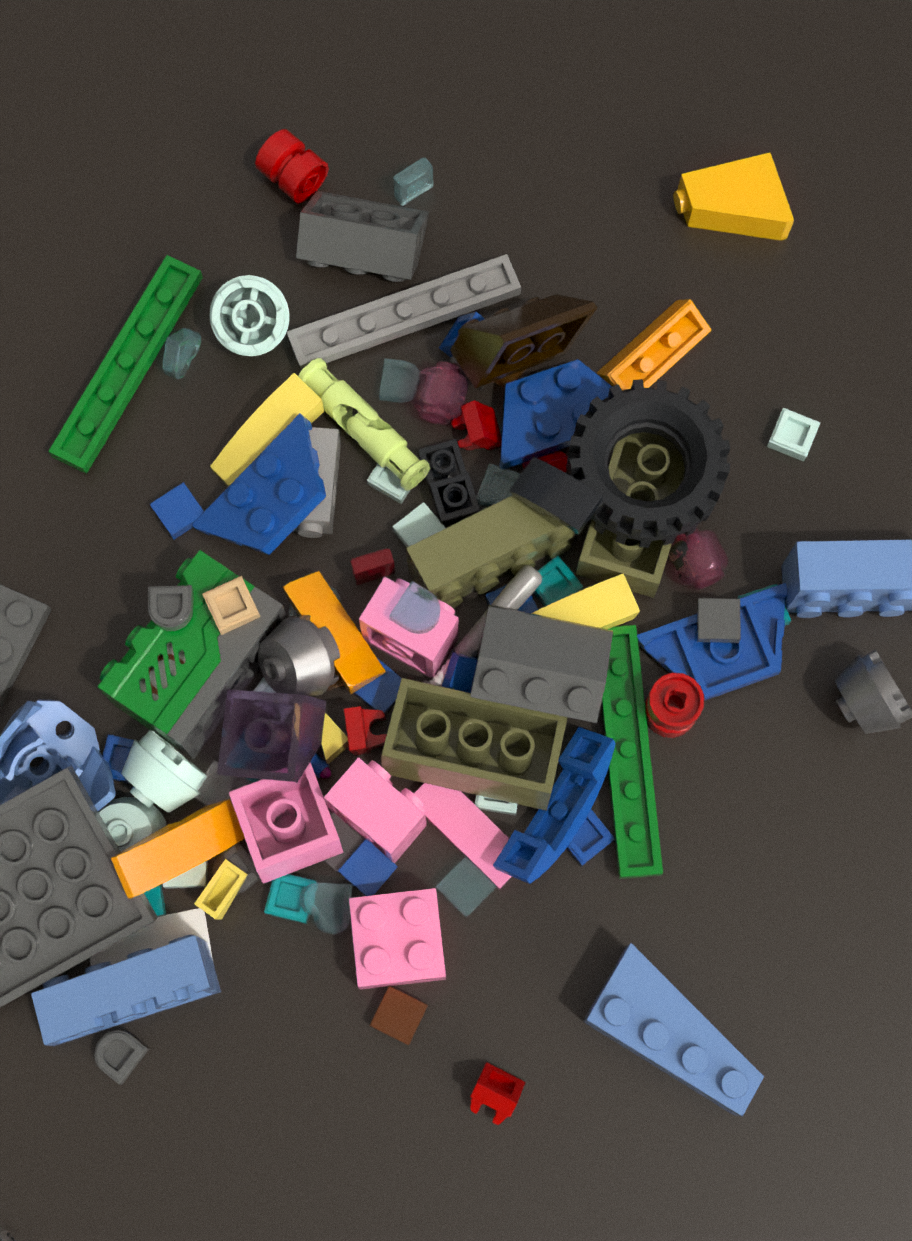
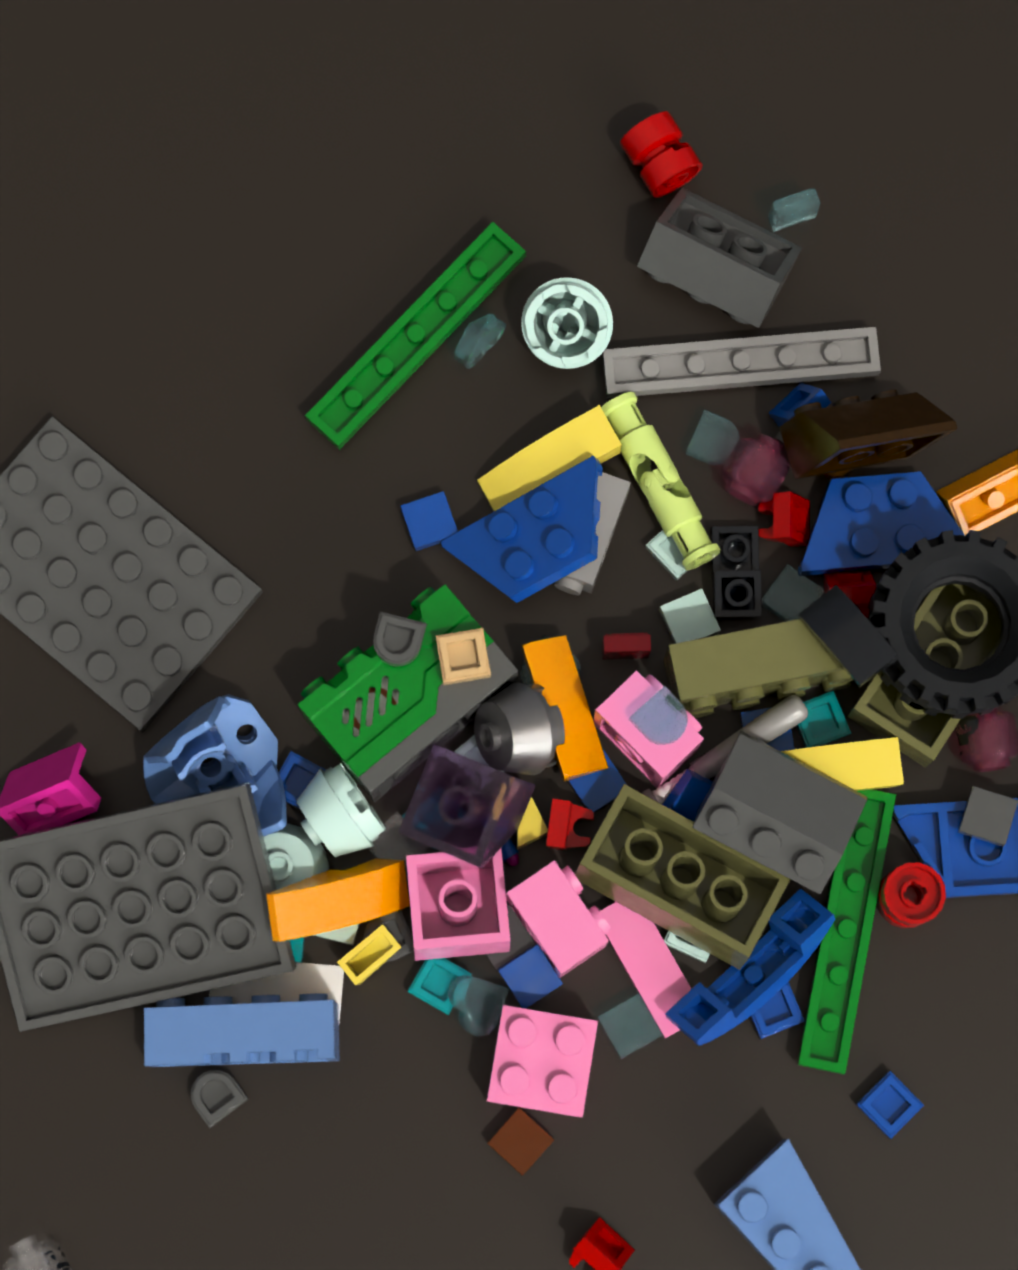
camera: 15 degrees right, 5 degrees up
(708, 890) = (889, 1104): none -> blue tile

